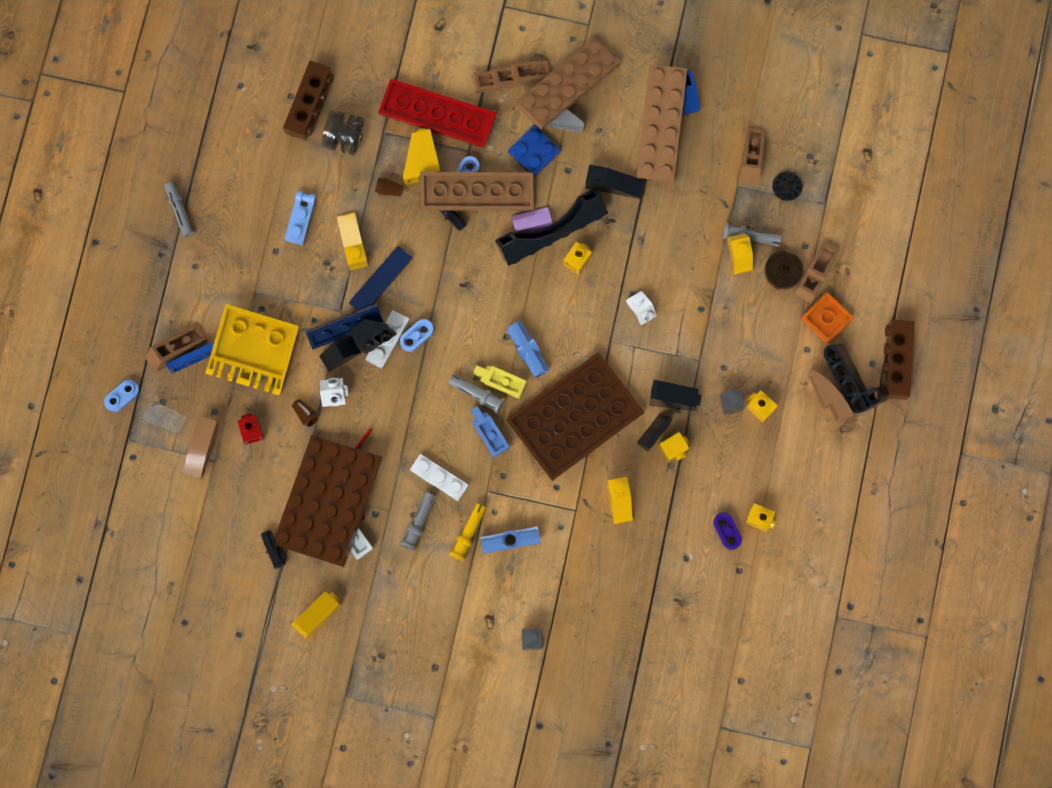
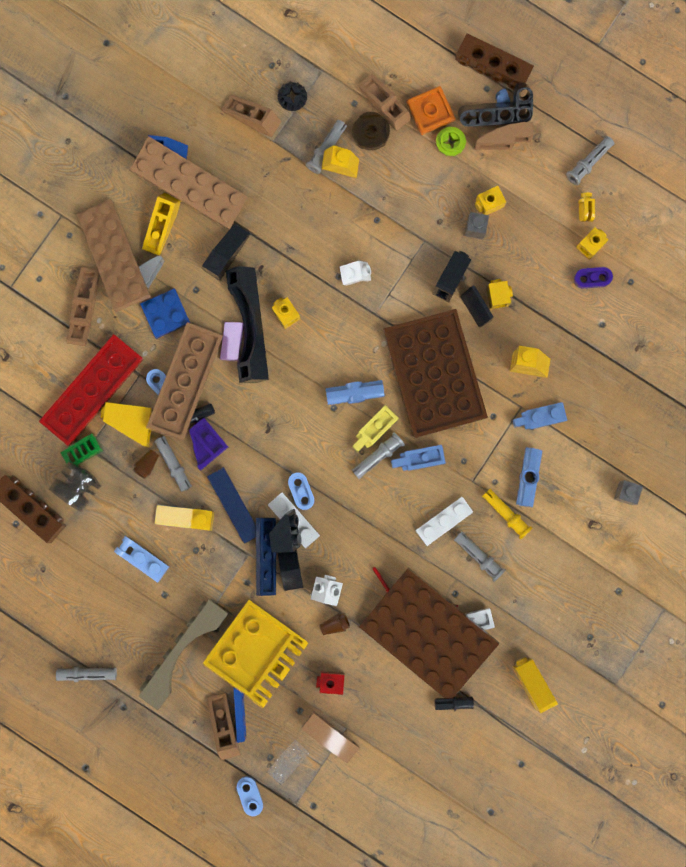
camera: 75 degrees left, 5 degrees up
(191, 277) = (160, 686): none -> dark tan arch
(387, 125) = (90, 438): none -> green slope
(392, 217) = (175, 468): none -> light grey pin
(428, 234) = (206, 443): none -> dark purple wing
(573, 532) = (541, 417): none -> medium blue hinge
(616, 114) = (161, 223): none -> yellow slope
(800, 497) = (586, 207): none -> yellow arm
(805, 339) = (456, 135): none -> lime gear
(864, 496) = (585, 166): none -> light grey pin
(869, 380) = (502, 96): none -> medium blue hinge

